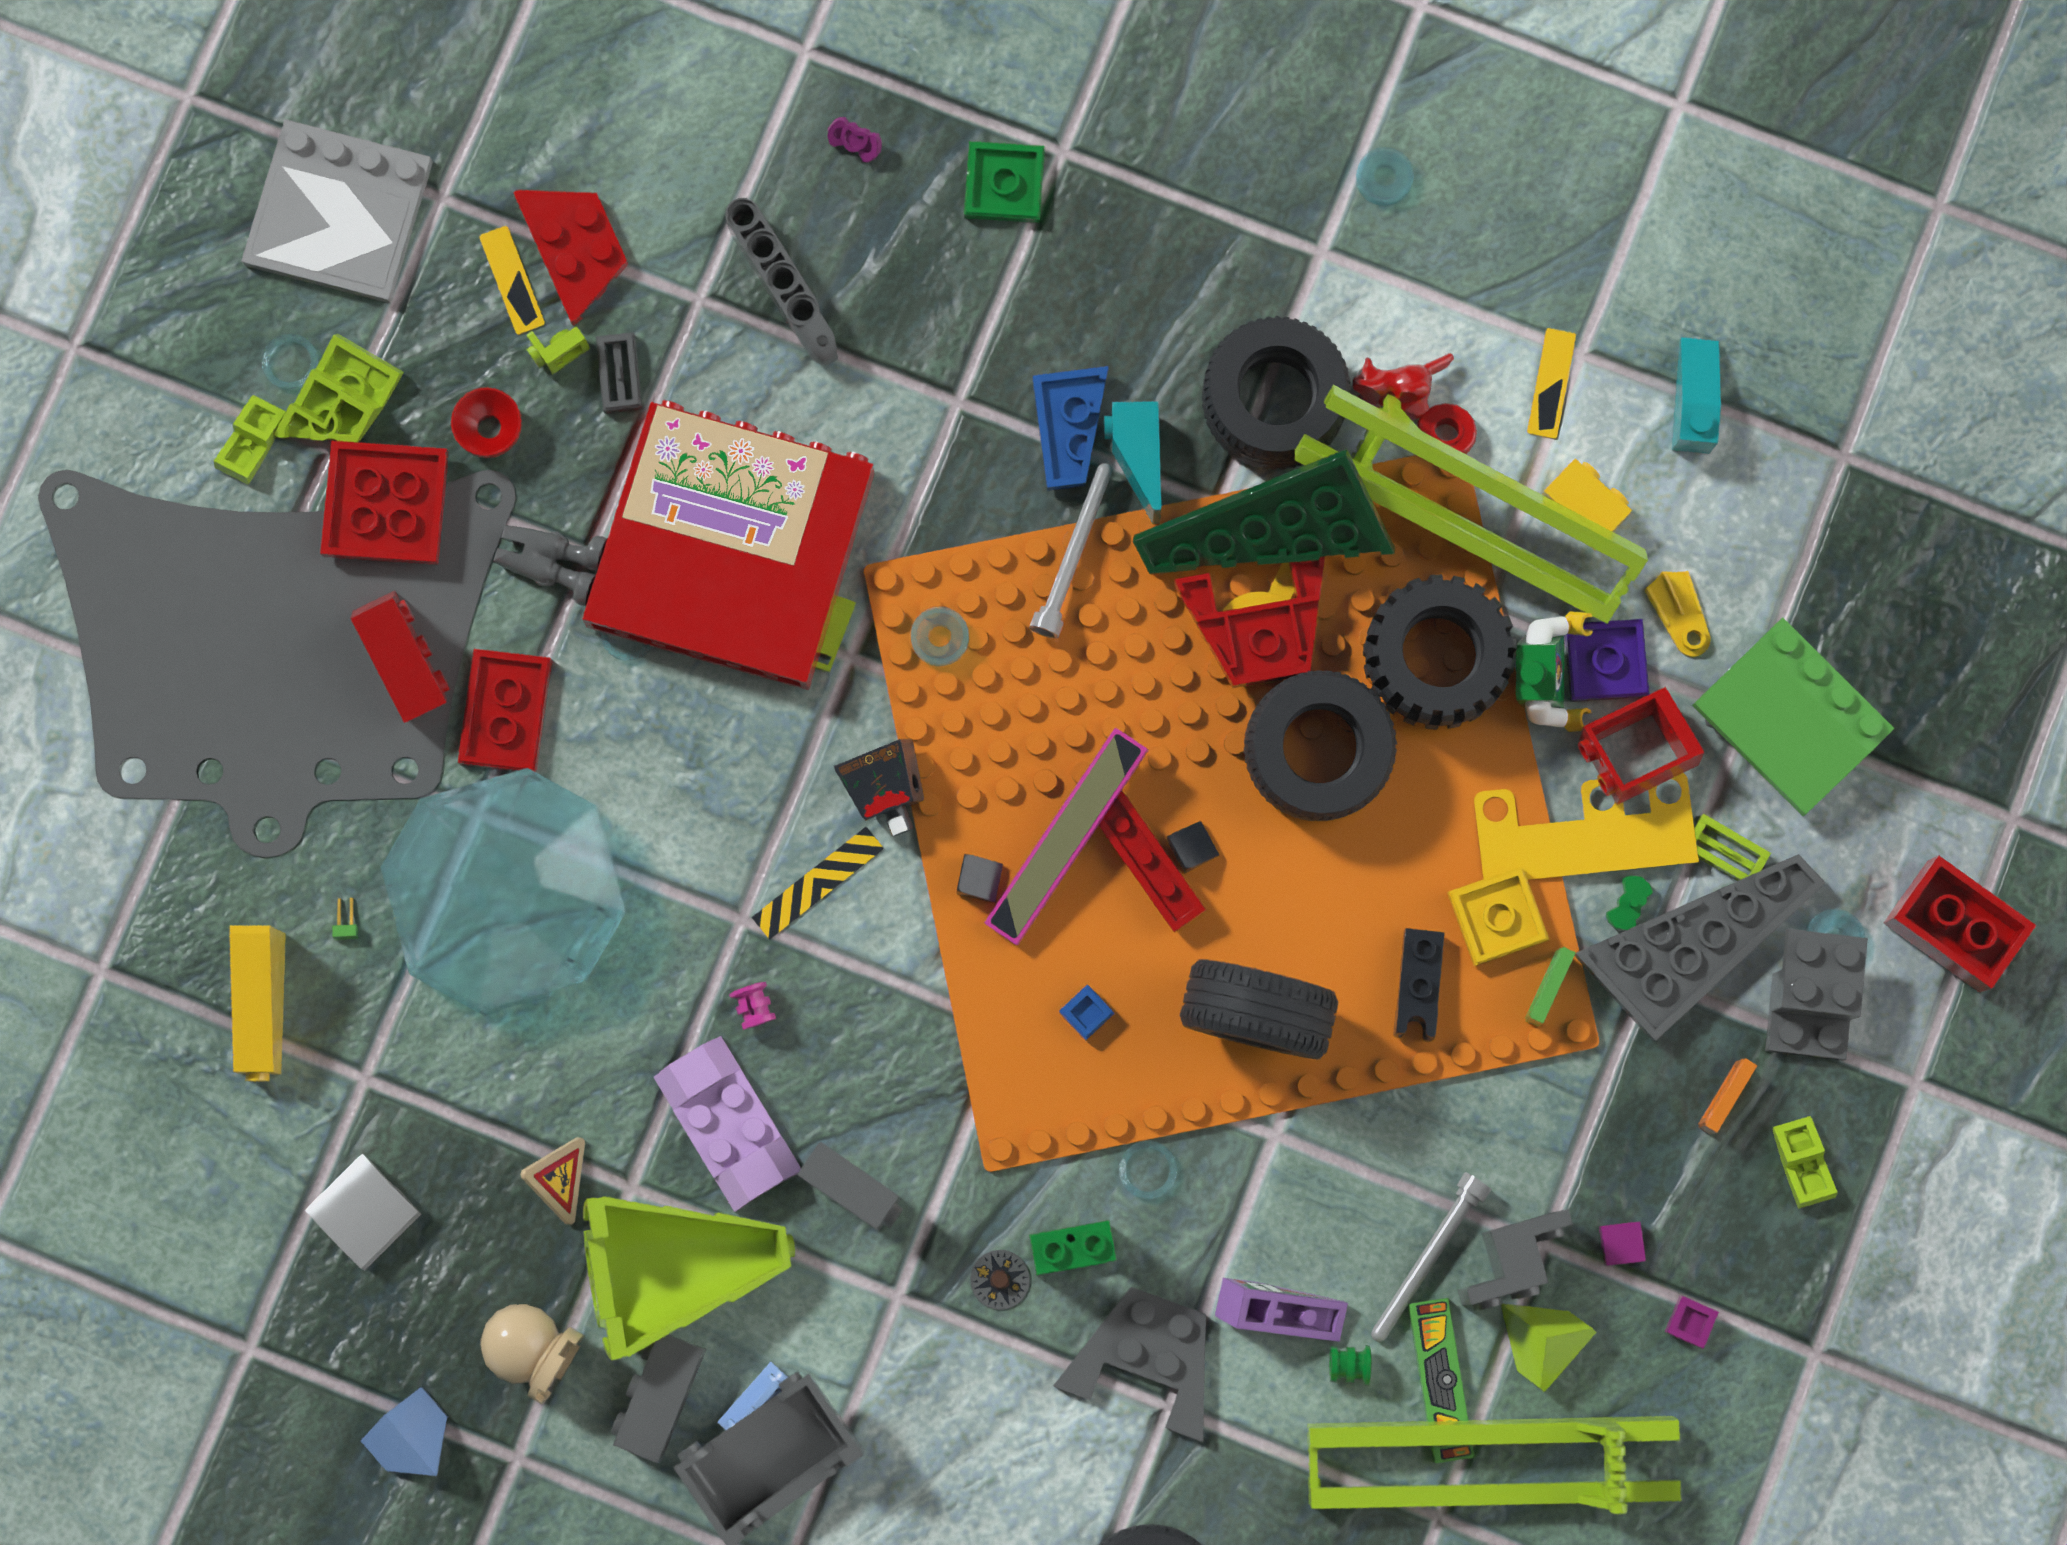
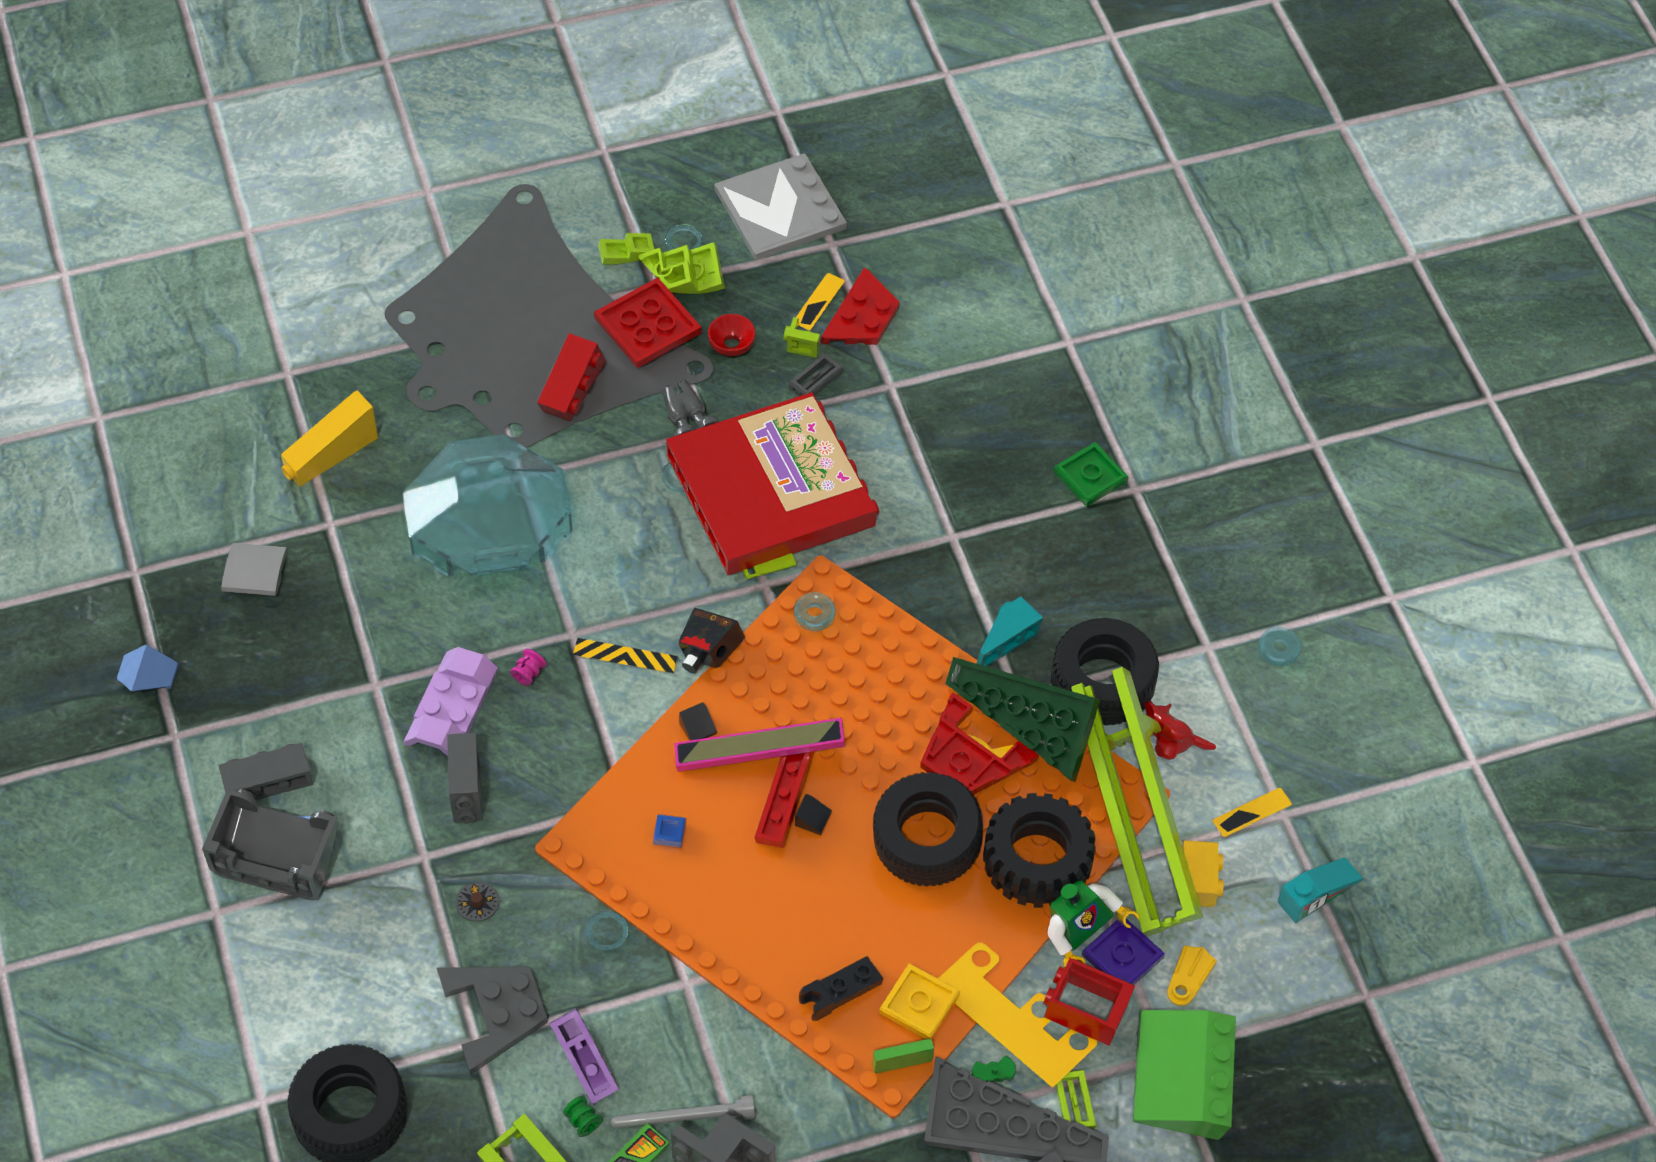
camera: 50 degrees right, 25 degrees down
(344, 932) = (403, 462): bright green piece -> none
(504, 710) = (588, 449): red tile -> none
(525, 1346) = (240, 691): tan tile -> none
(558, 1179) = (349, 642): piece -> none
(671, 1266) = (347, 721): lime cone -> none
(812, 332) = (935, 409): dark grey piece -> none
(854, 138) = (1043, 390): magenta piece -> none
(1048, 619) = (871, 653): light grey piece -> none
(1067, 421) = (990, 591): blue wing -> none
(1091, 1247) = (524, 913): green window -> none
(1259, 1008) = (745, 894): black tyre -> none
(1455, 417) = (1179, 770): red piece -> none

